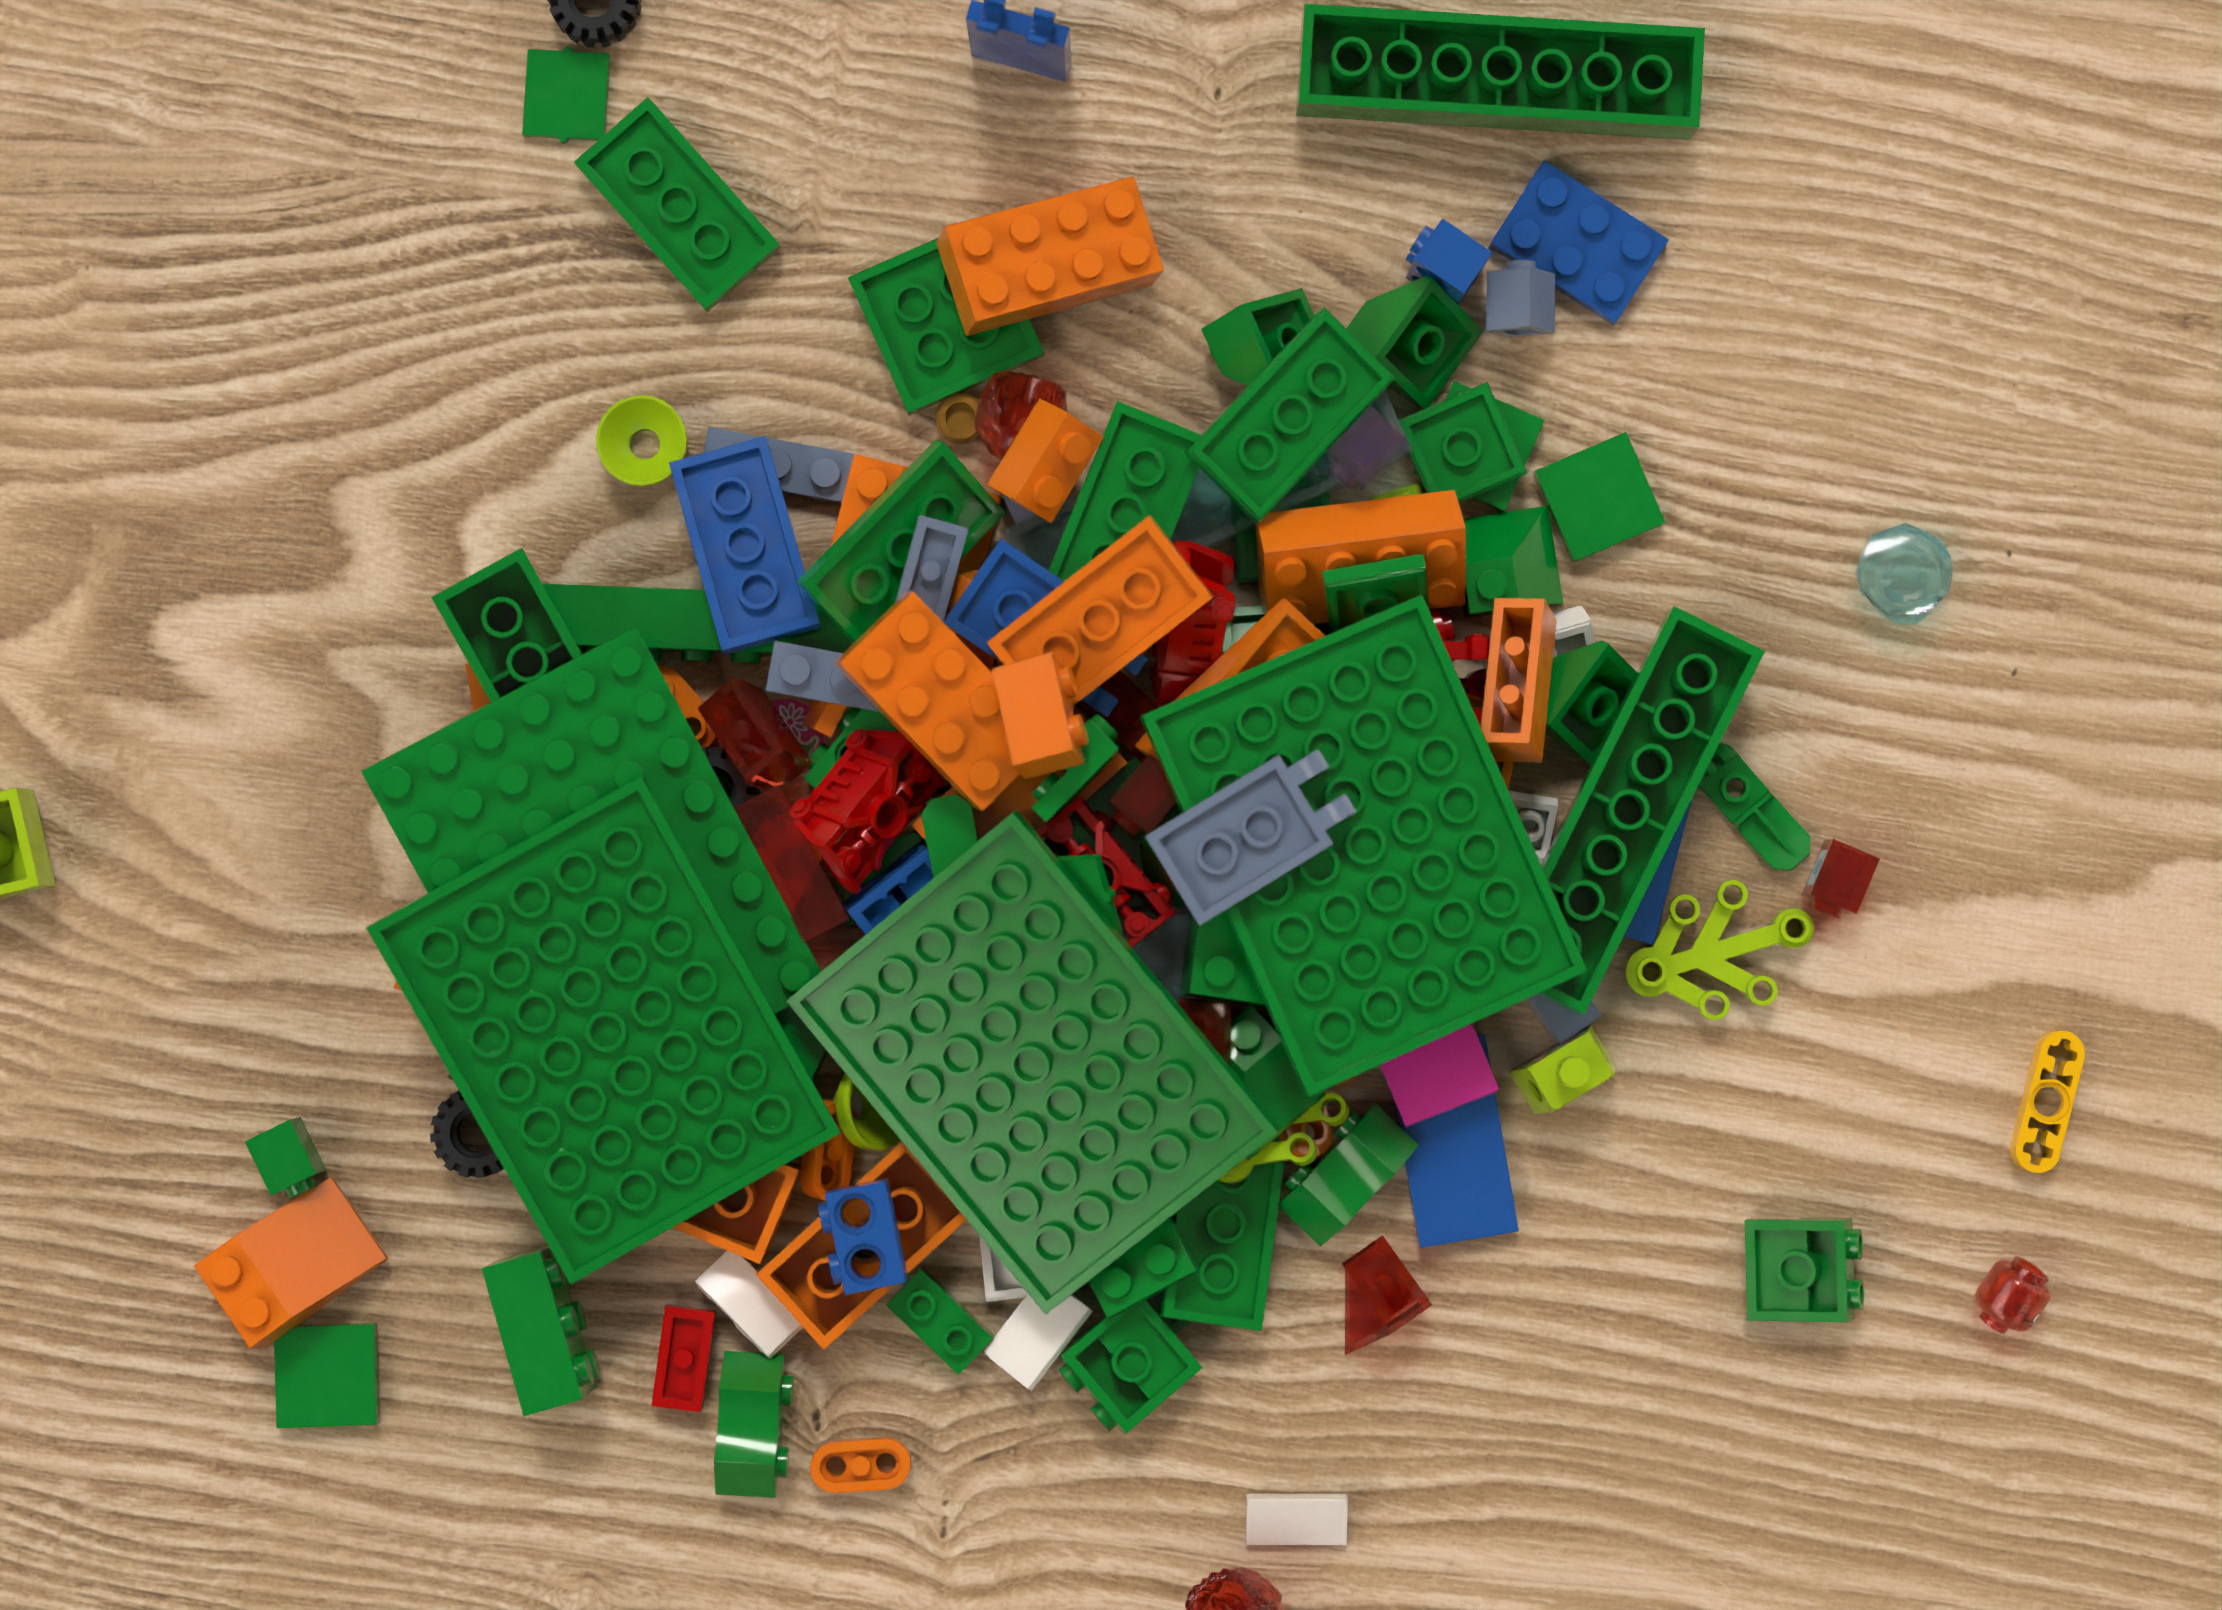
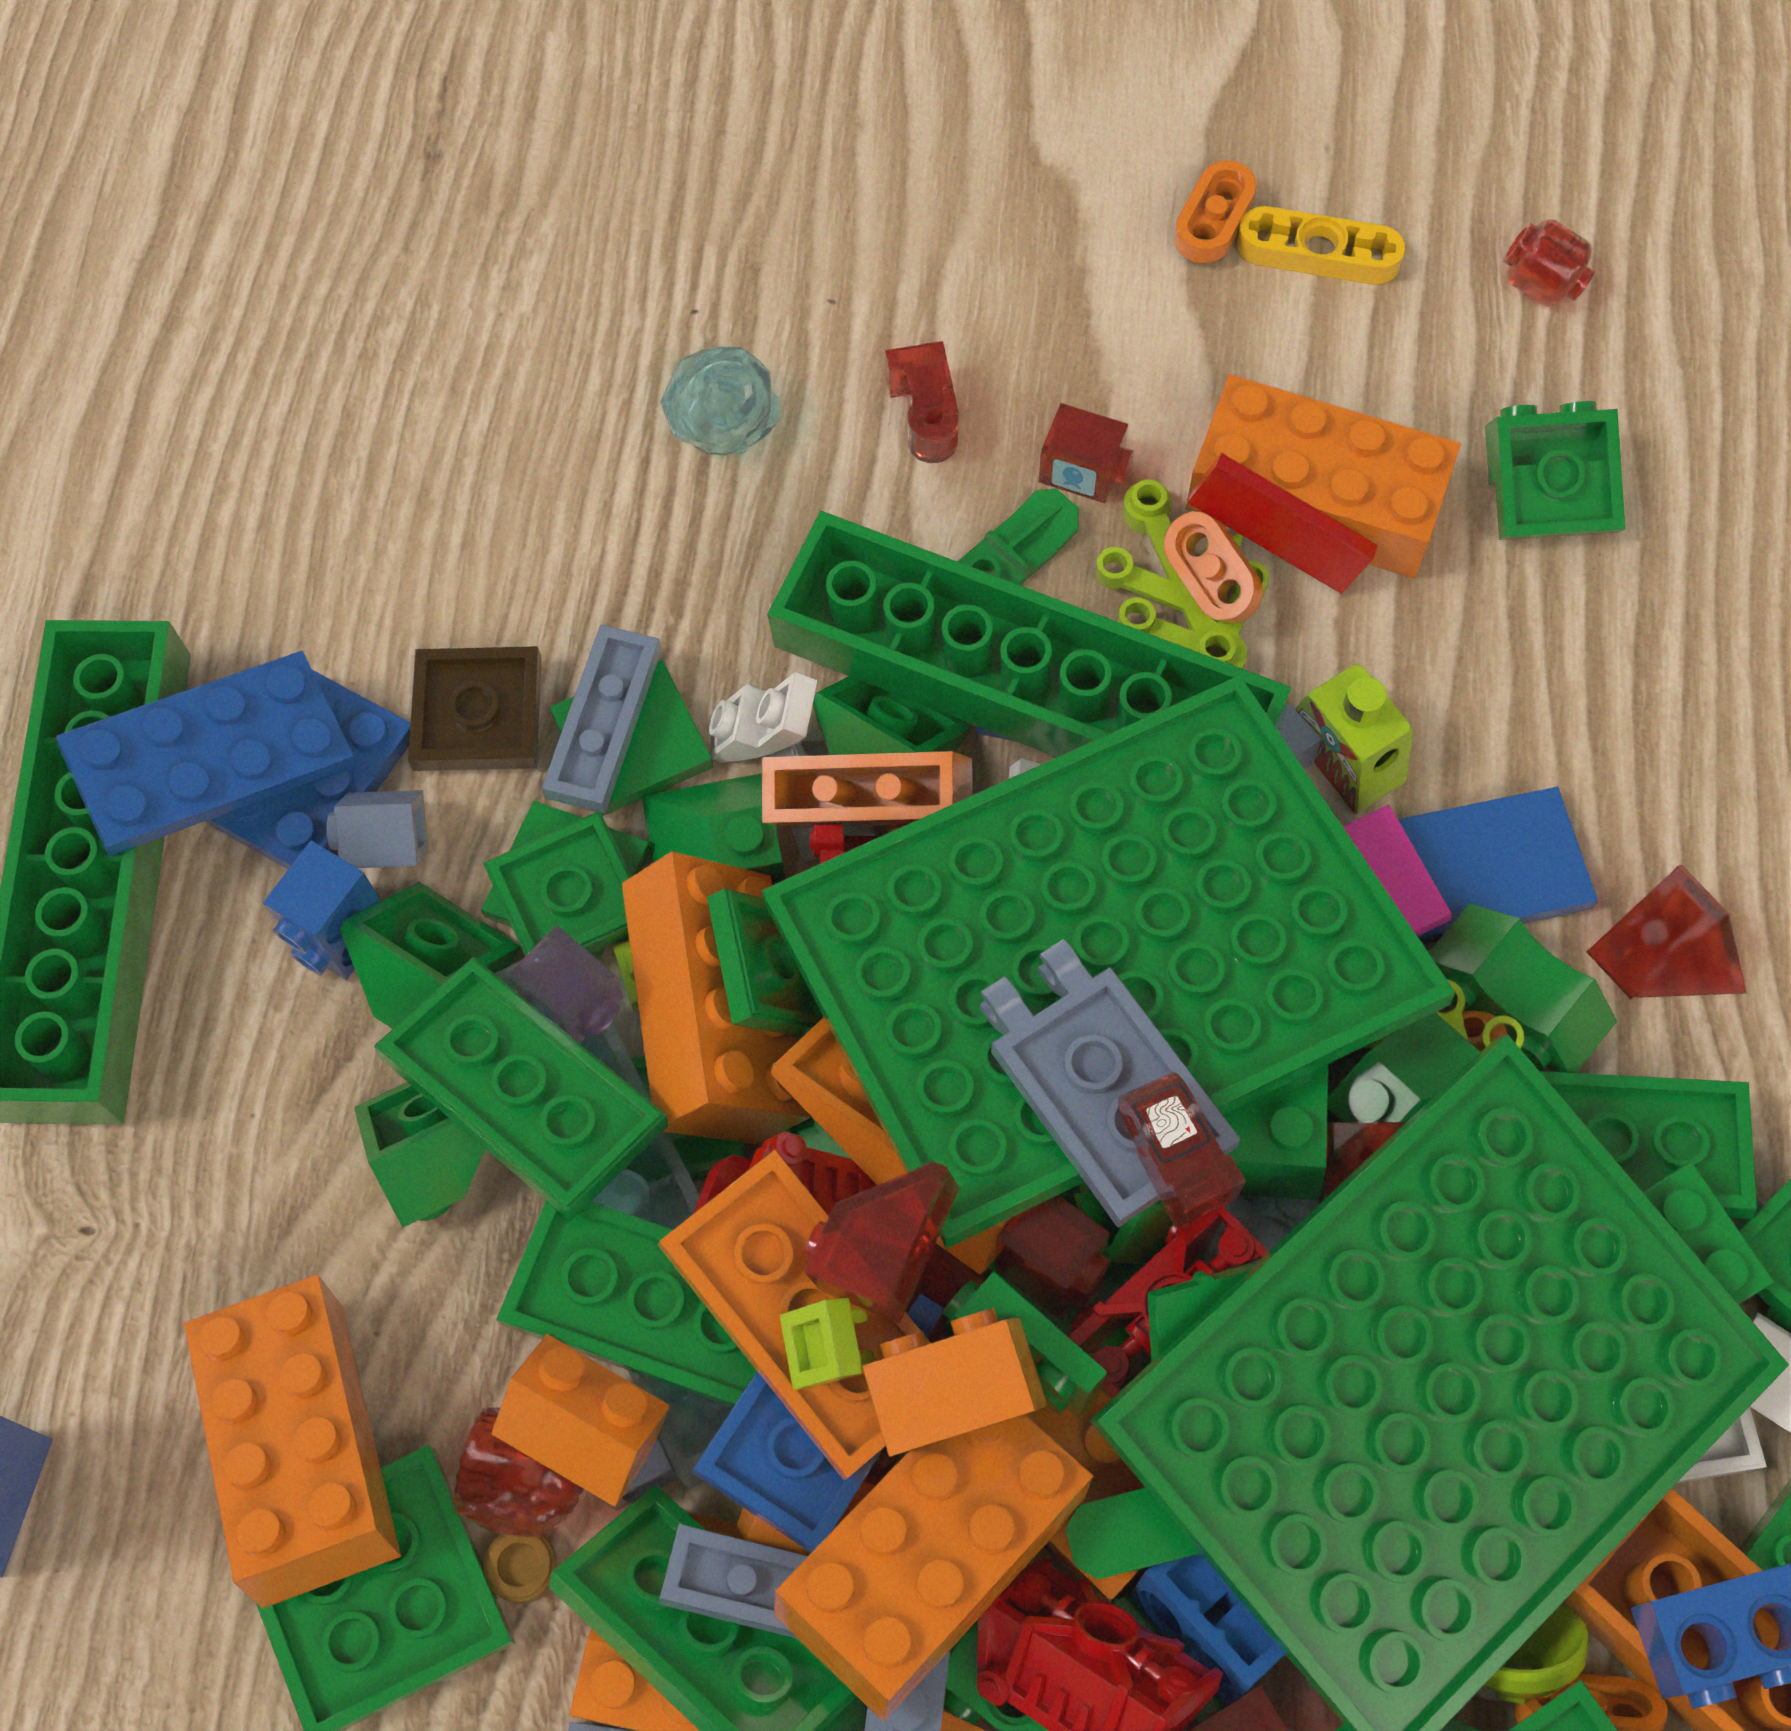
camera: 90 degrees left, 20 degrees down
(1071, 627) = (823, 1343): none -> lime tile
(1137, 669) = (881, 1240): none -> clear red slope
(1190, 877) = (1179, 1149): none -> clear red leg
(1582, 164) = (204, 752): none -> blue plate
(1600, 601) = (762, 721): none -> white slope
(1607, 474) = (602, 719): none -> sand blue plate
(1627, 372) = (475, 708): none -> dark brown plate
(1716, 971) = (1215, 571): none -> orange plate
(1756, 1033) = (1282, 523): none -> red tile
(1807, 1073) = (1344, 463): none -> orange brick
(1884, 753) = (933, 414): none -> clear red leg
(2082, 1010) = (1211, 215): none -> orange plate

